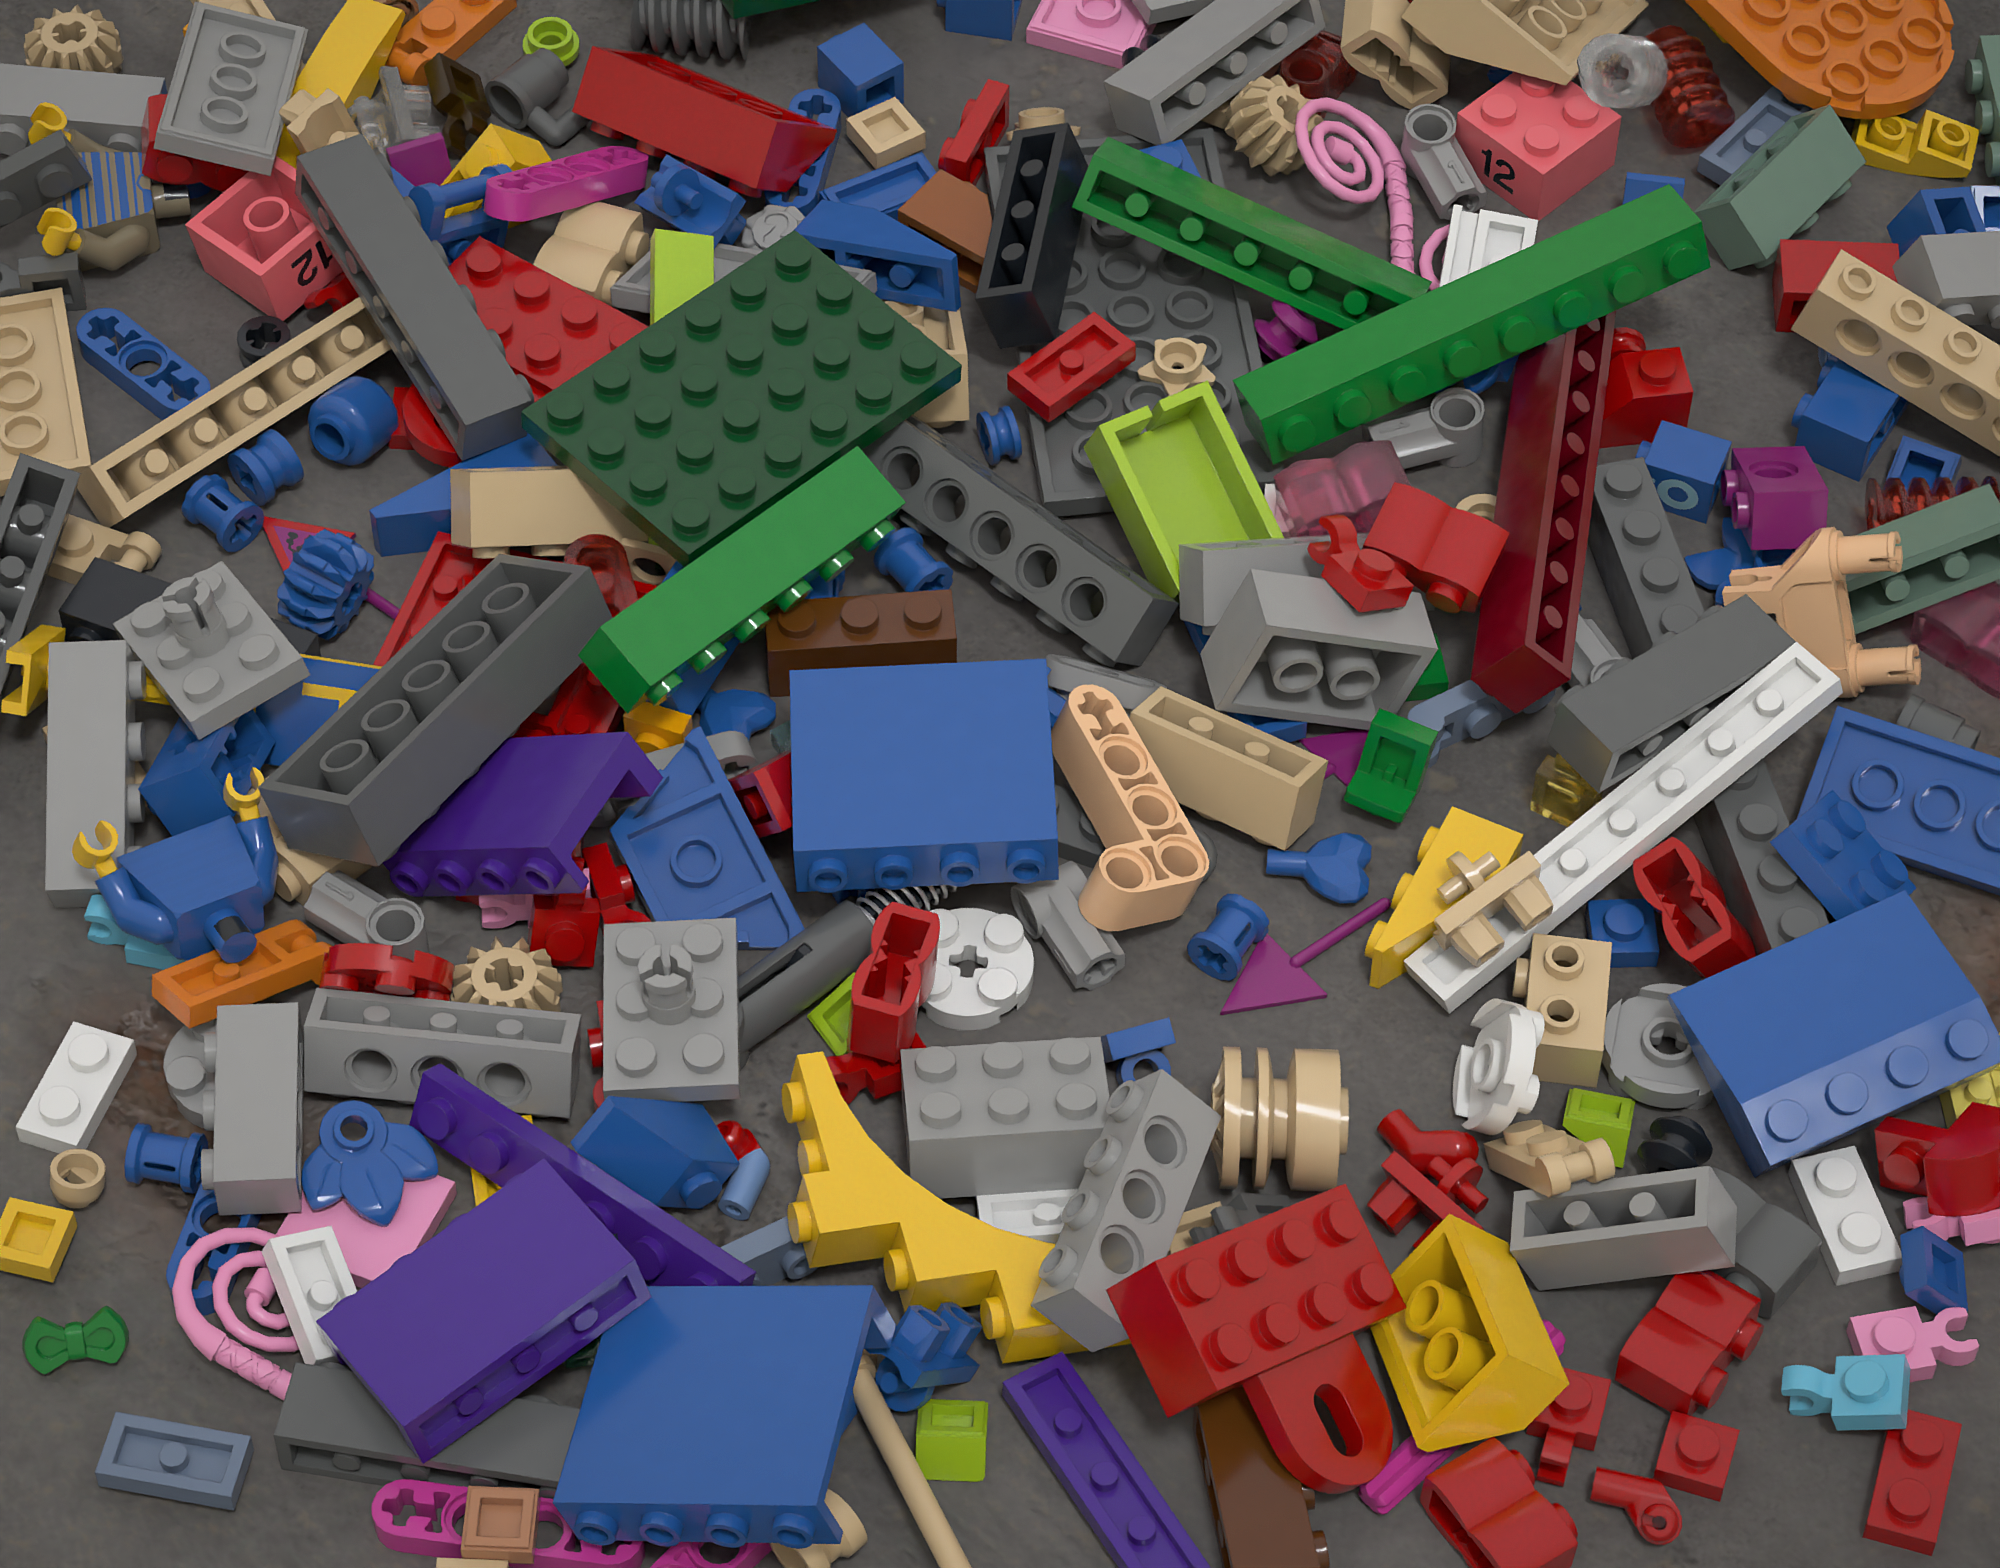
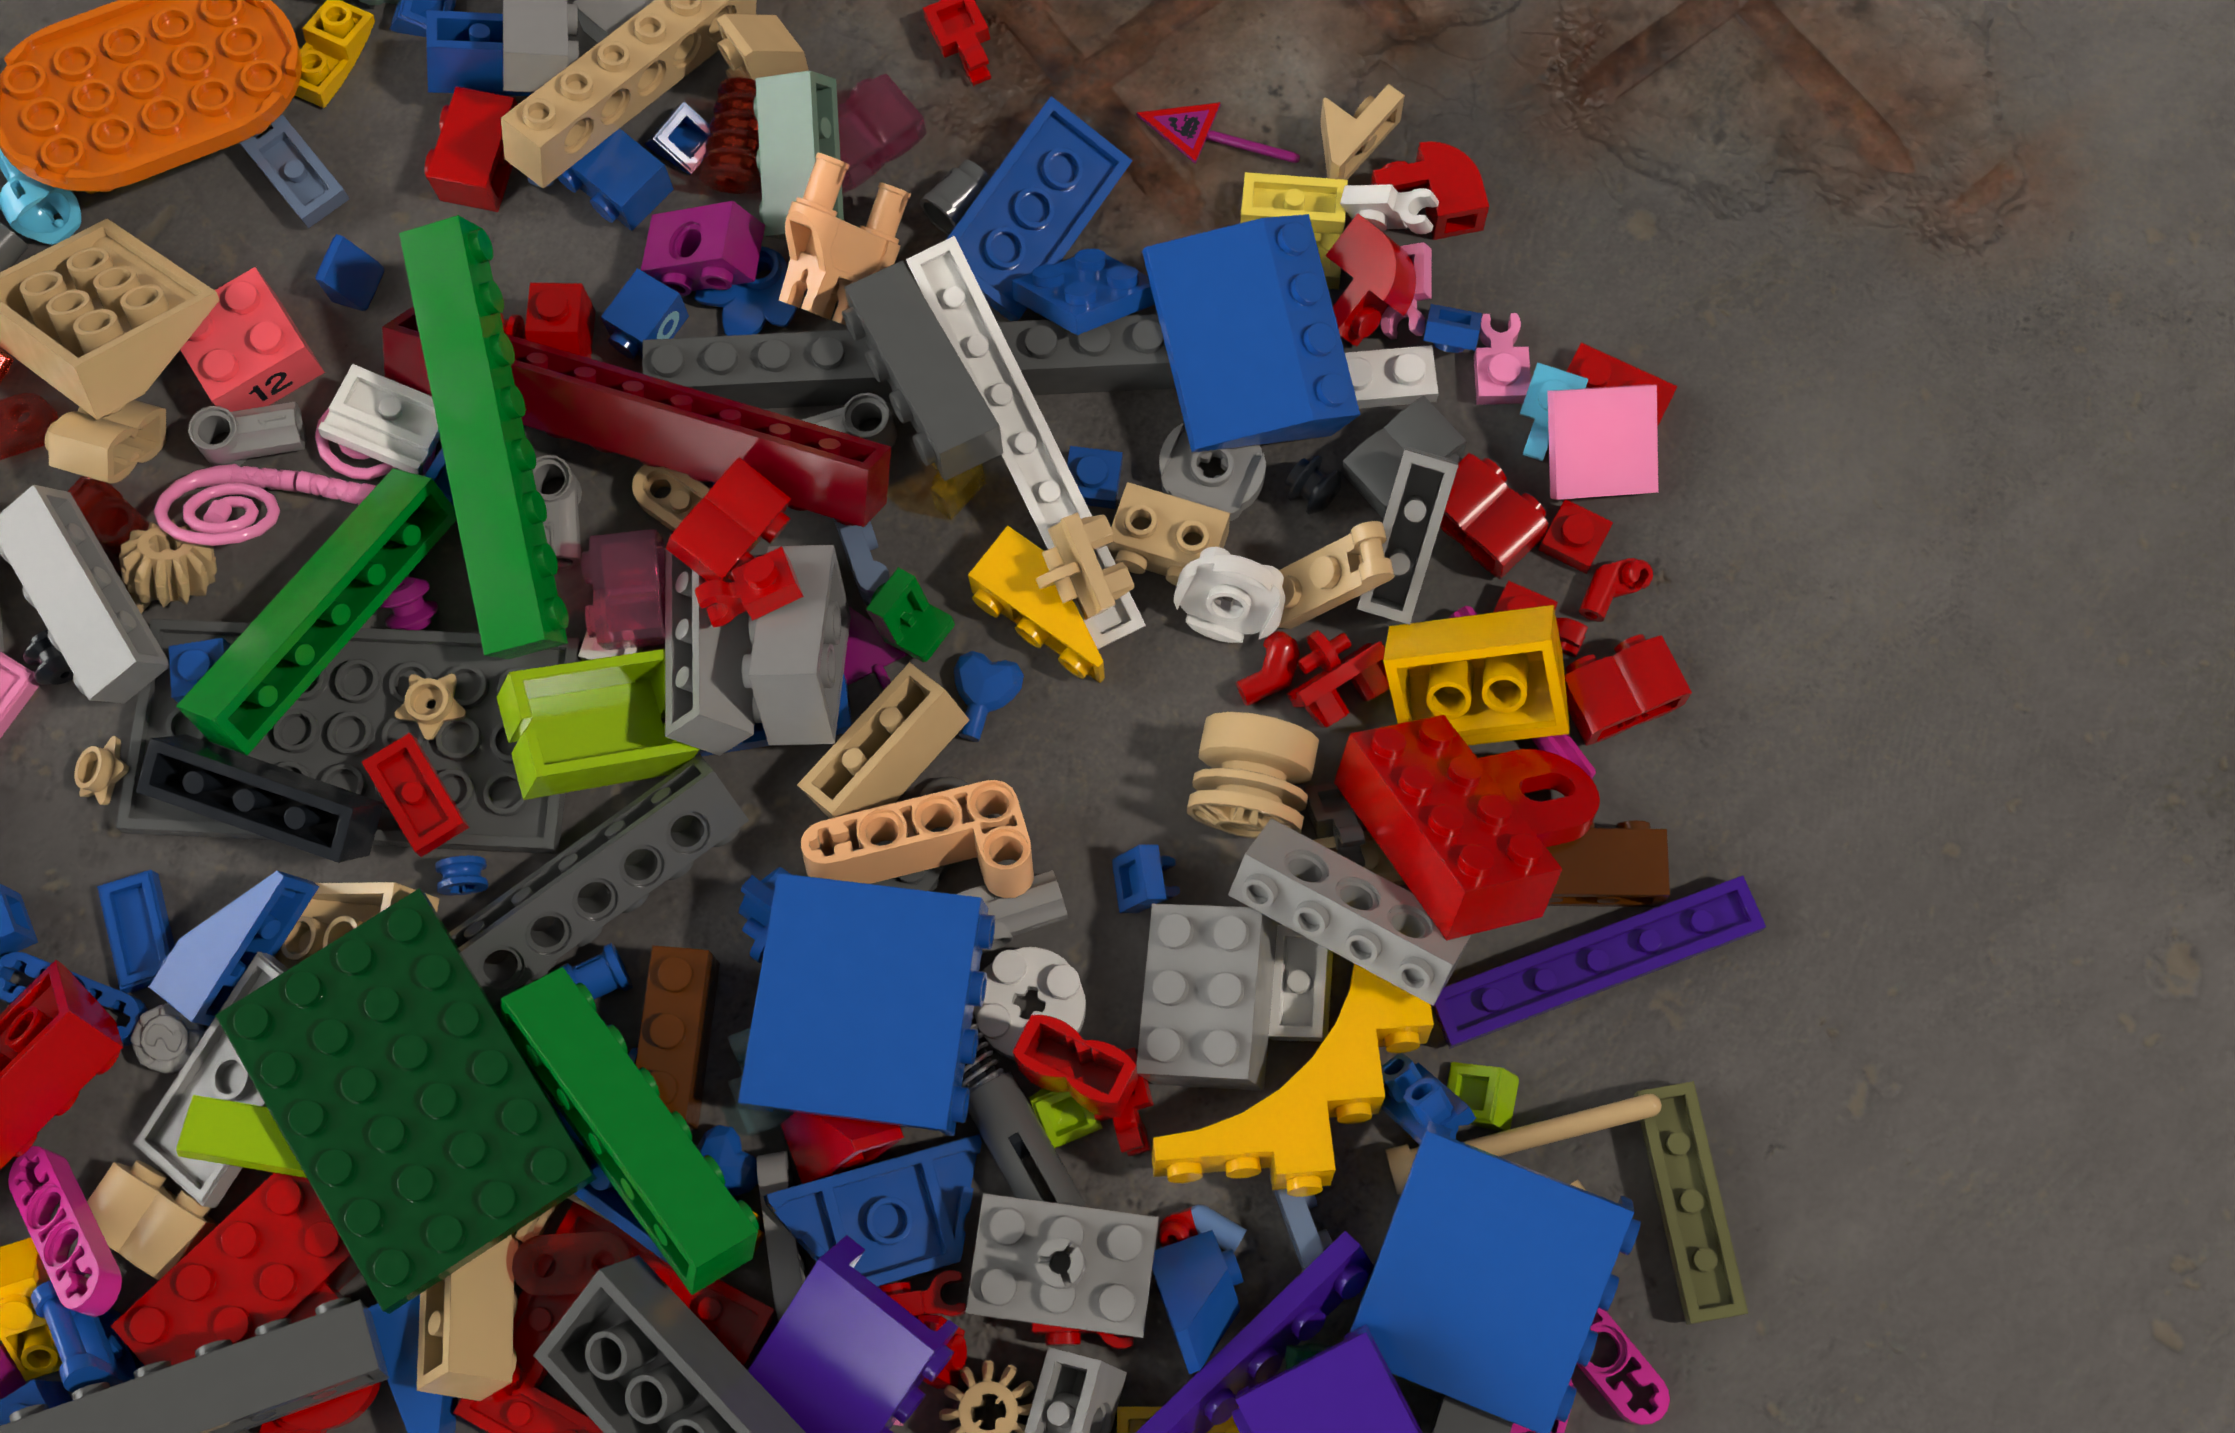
camera: 75 degrees left, 20 degrees up
(693, 202) = (114, 1112): blue hips -> none
(885, 133) = (65, 915): tan plate -> none
(955, 218) = (211, 870): dark orange slope -> none
(981, 126) = (117, 847): red plate -> none
(1071, 672) = (760, 840): light grey plate -> none
(1228, 937) = (1046, 783): blue bush -> none
(1278, 980) = (1080, 755): magenta piece -> none
(1600, 77) = (215, 249): clear piece -> none
(1600, 1115) = (1269, 534): lime slope -> none
(1692, 104) = (221, 216): clear red piece -> none
(1692, 908) = (1120, 410): red brick -> none
(1780, 188) = (360, 163): sand green brick -> none
(1823, 1449) = (1603, 441): none -> bright pink tile

